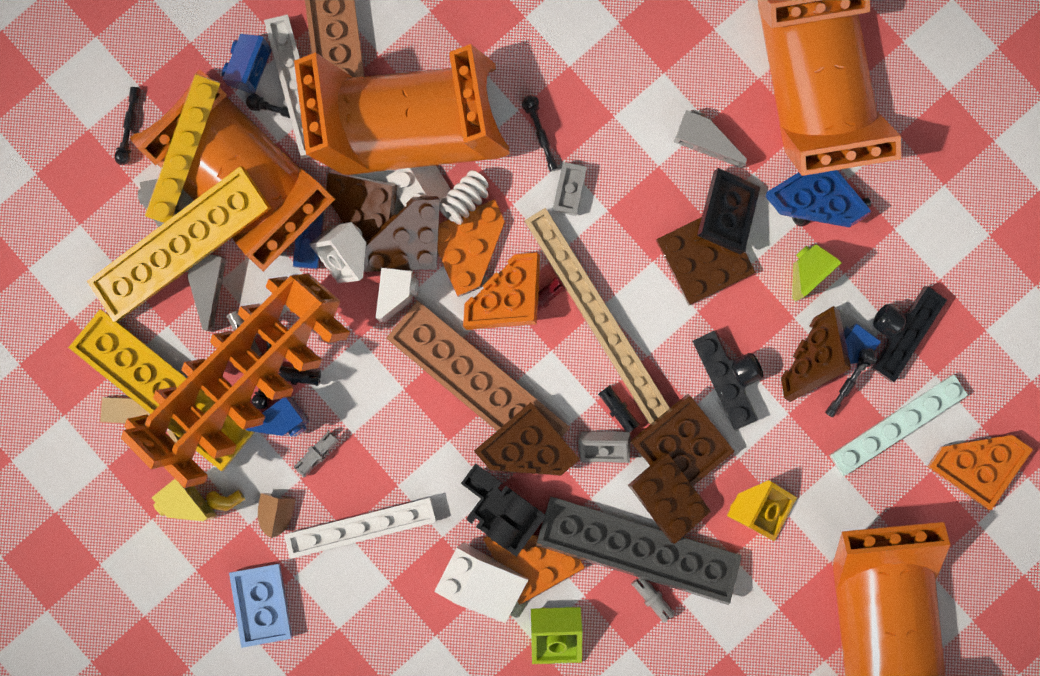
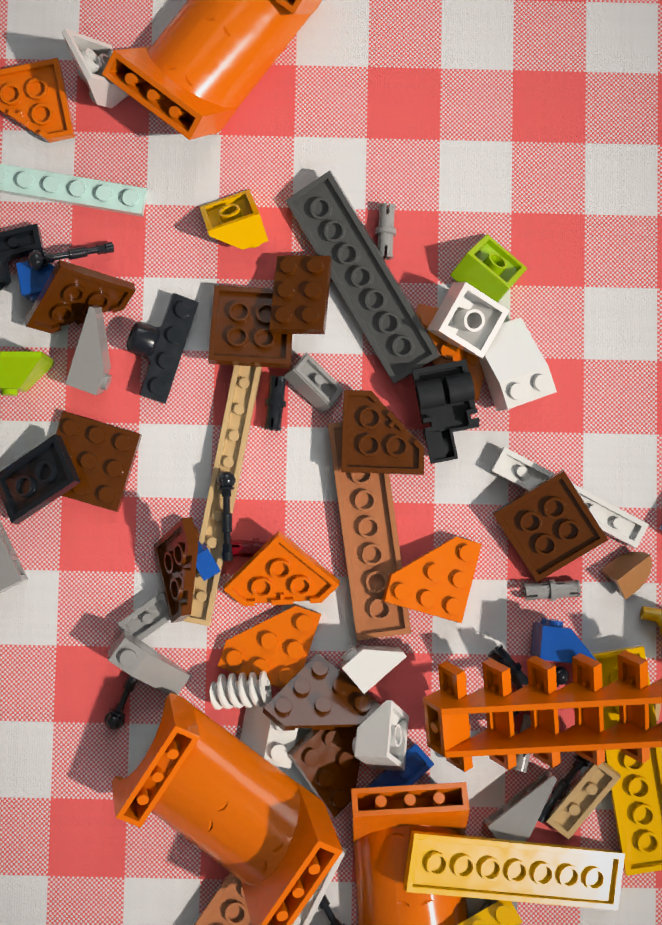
camera: 140 degrees left, 0 degrees up
(173, 333) = (583, 798): none -> tan plate
(192, 327) = (562, 787): none -> black piece
(356, 495) = (550, 525): none -> reddish brown plate
(400, 389) = (437, 580): none -> orange plate
(539, 585) = (468, 319): none -> white slope
(542, 158) = (147, 664): none -> light grey slope
(575, 261) = (205, 562): none -> blue piece
(582, 240) = (177, 562): none -> reddish brown plate
(601, 324) = (226, 482): none -> black piece
(769, 325) = (91, 359): none -> light grey slope
(962, 528) = (91, 59): none -> white slope

